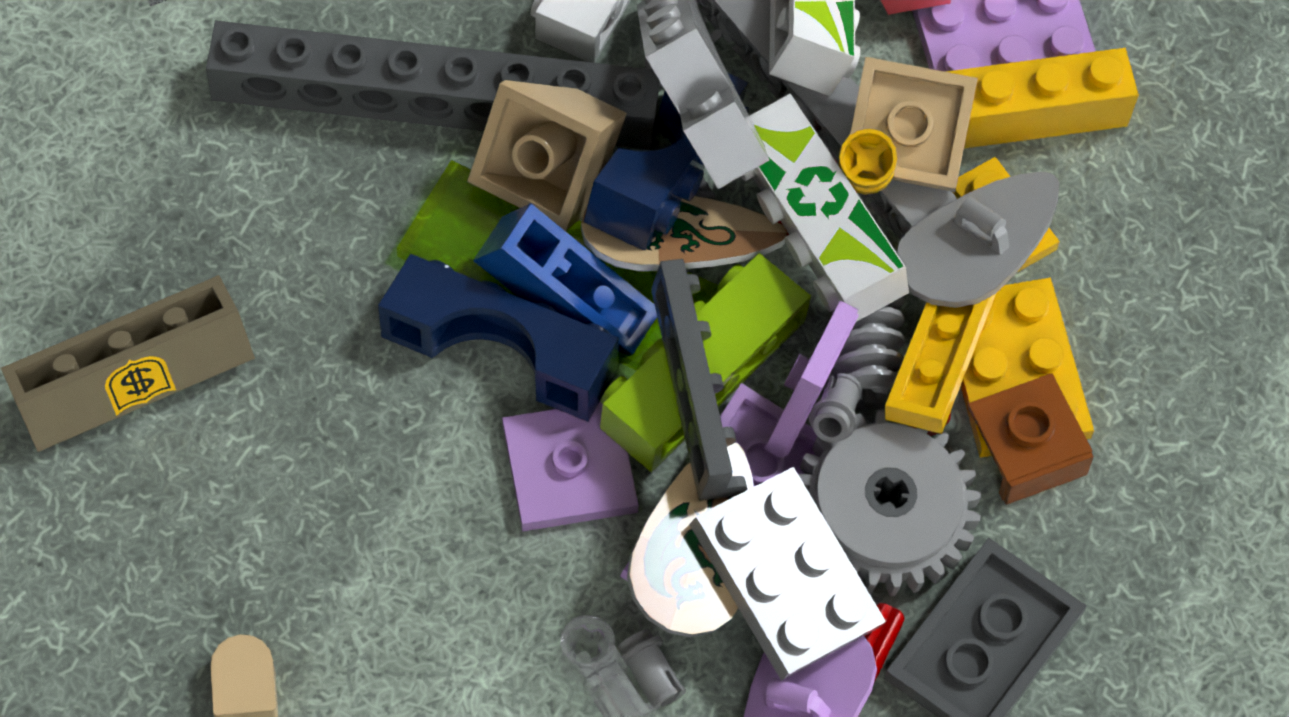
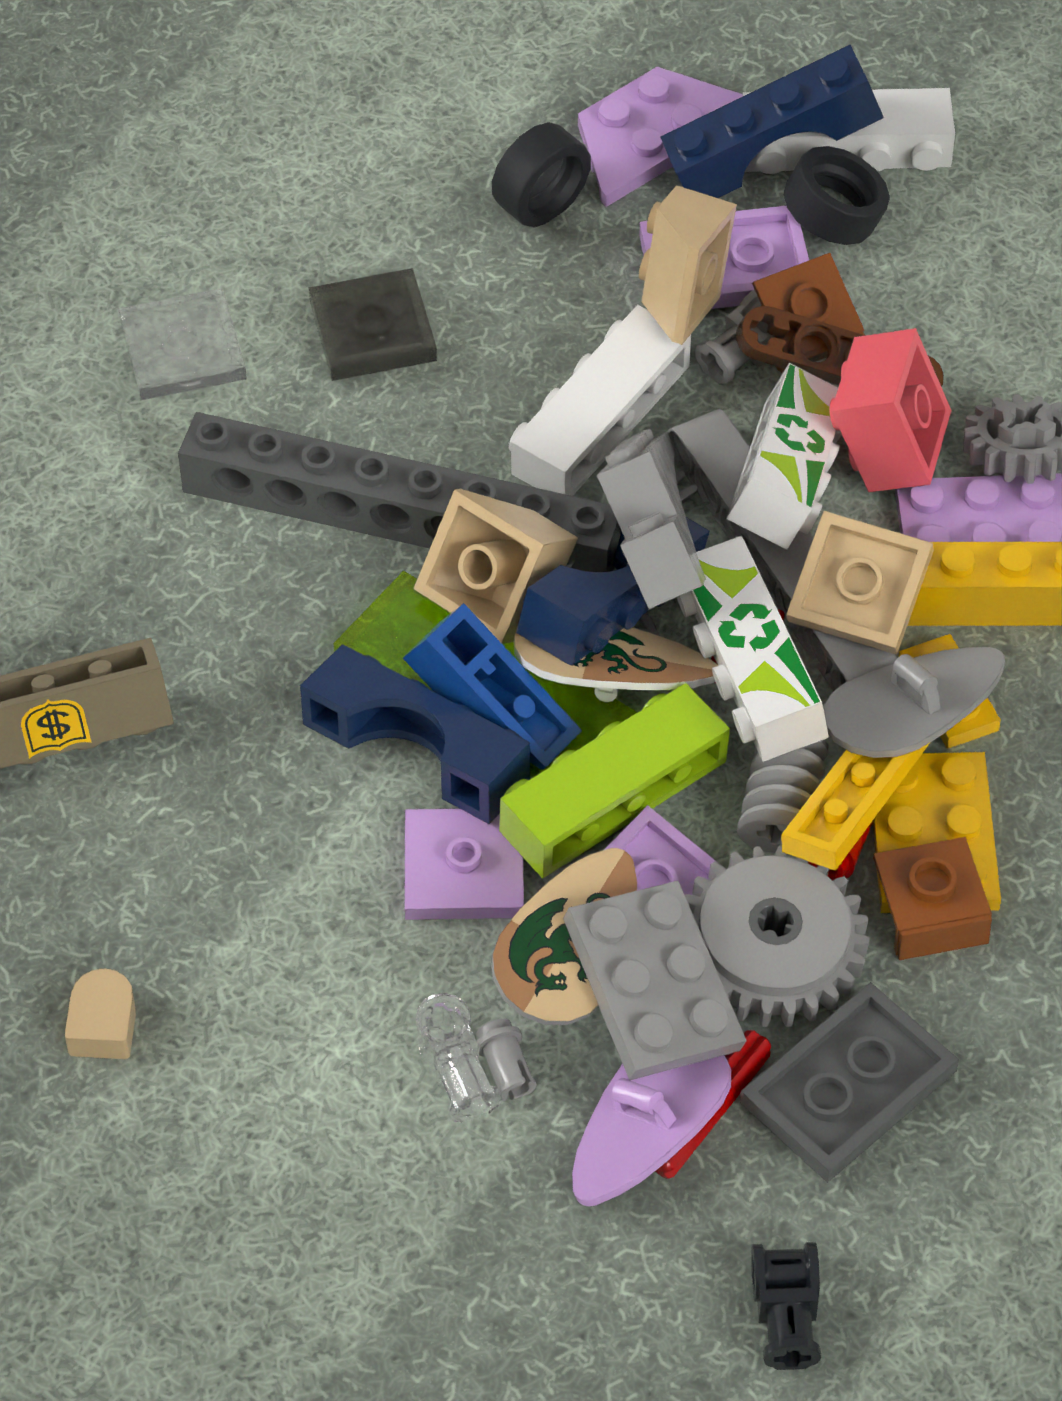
camera: 15 degrees right, 10 degrees down
(693, 383) = (590, 786): dark grey hinge -> none
(809, 378) = (713, 803): lavender plate -> none
(834, 415) = (730, 839): light grey pin -> none
(872, 153) = (801, 596): yellow wheel -> none

